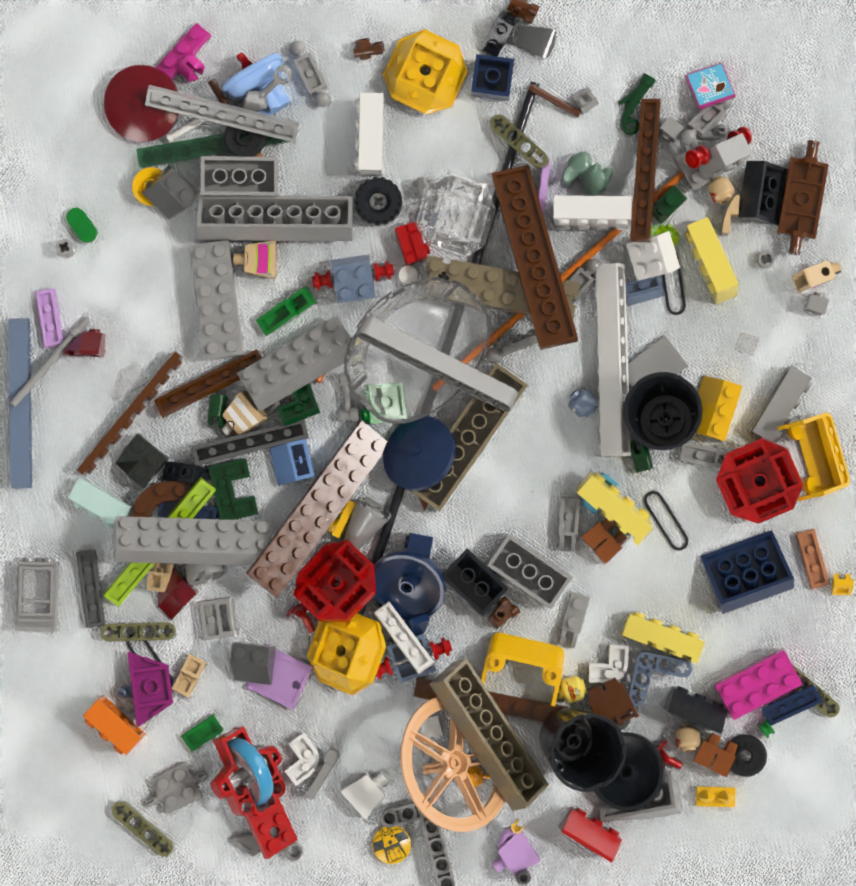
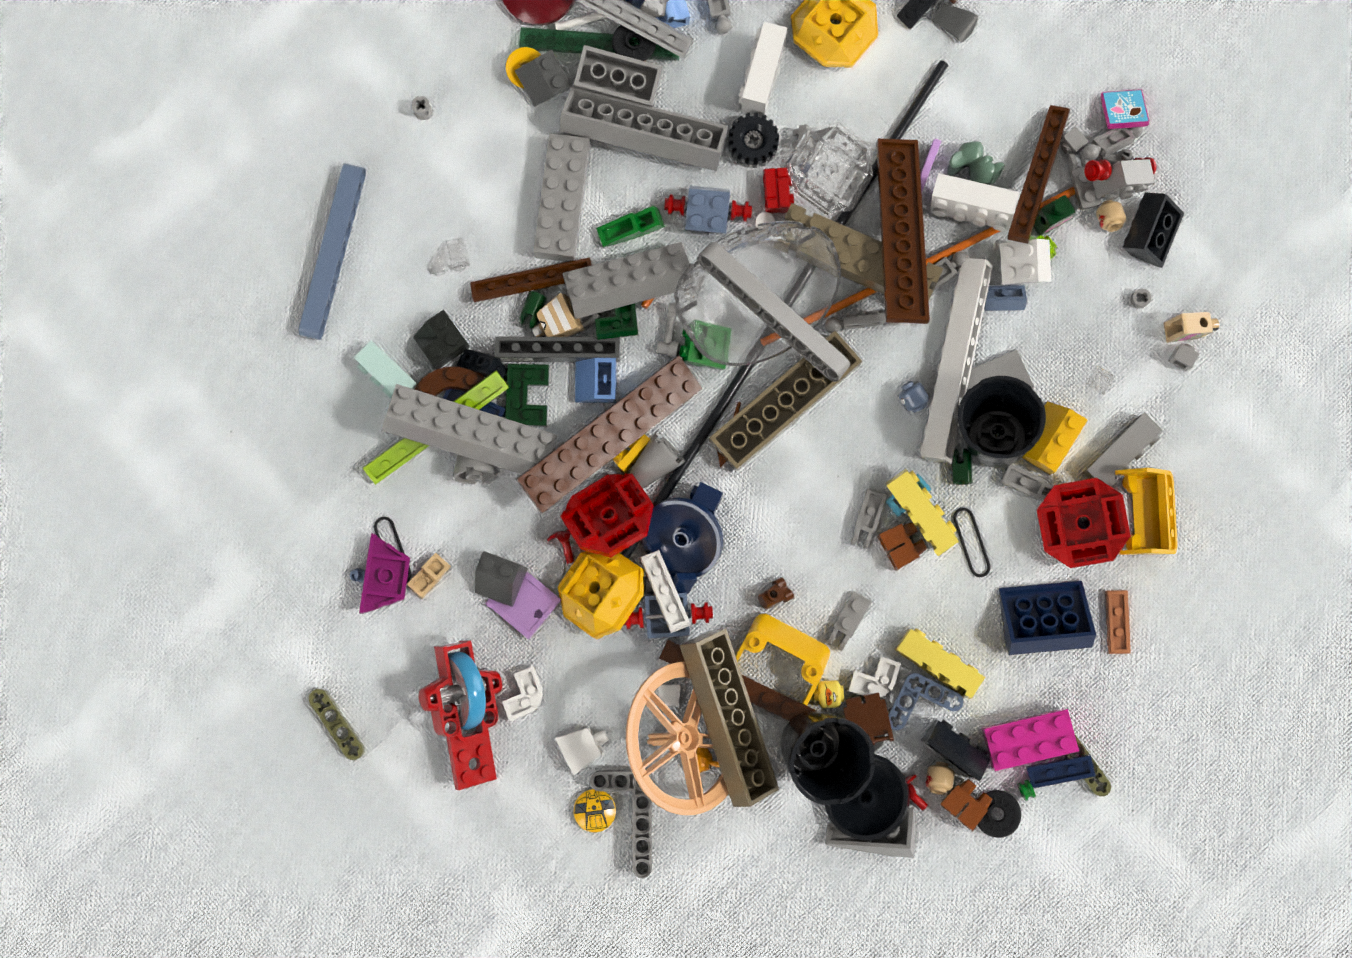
camera: 15 degrees right, 5 degrees down
(37, 595) = (295, 450): light grey door -> none
(49, 317) = (386, 174): lavender tile -> none
(73, 334) = (407, 195): light grey bar -> none
(82, 225) = (445, 90): green tile -> none
(87, 345) = (417, 210): dark red slope -> none
(91, 588) = (352, 459): dark grey tile -> none
(114, 725) = (335, 606): orange brick -> none
(125, 420) = (436, 294): reddish brown plate -> none
(138, 632) = (390, 512): olive beam -> none
(159, 577) = (426, 464): tan slope -> none
(176, 595) = (437, 485): dark red slope -> none
(176, 788) = (384, 691): light grey plate -> none
(202, 733) = (426, 639): green tile -> none
(212, 619) = (469, 521): light grey plate -> none
(249, 845) = (443, 772): light grey piece -> none
(259, 259) = (616, 167): tan torso -> none
(322, 773) = (541, 714): light grey hinge -> none
(419, 454) = (730, 404): dark blue dish -> none
(474, 582) = (754, 553): black slope -> none
(492, 77) = (902, 44): dark blue brick -> none
(515, 853) = (725, 854): lavender torso -> none
(519, 141) = (912, 116): olive beam -> none
(529, 571) = (814, 556): light grey brick -> none
(554, 100) = (960, 84): reddish brown bar -> none
(585, 101) = (991, 93): light grey tile -> none
(591, 833) = (812, 854): slope -> none
(633, 99) = (1041, 103): dark green plant -> none
(682, 292) = (1045, 309): black piece -> none
(712, 260) = (1085, 285): light yellow wedge -> none
(715, 796) = (954, 849): yellow tile -> none
(732, 211) = (1116, 242): tan slope -> none
(803, 197) = (1194, 245): reddish brown plate -> none
(842, 586) = (1144, 658): yellow tile -> none

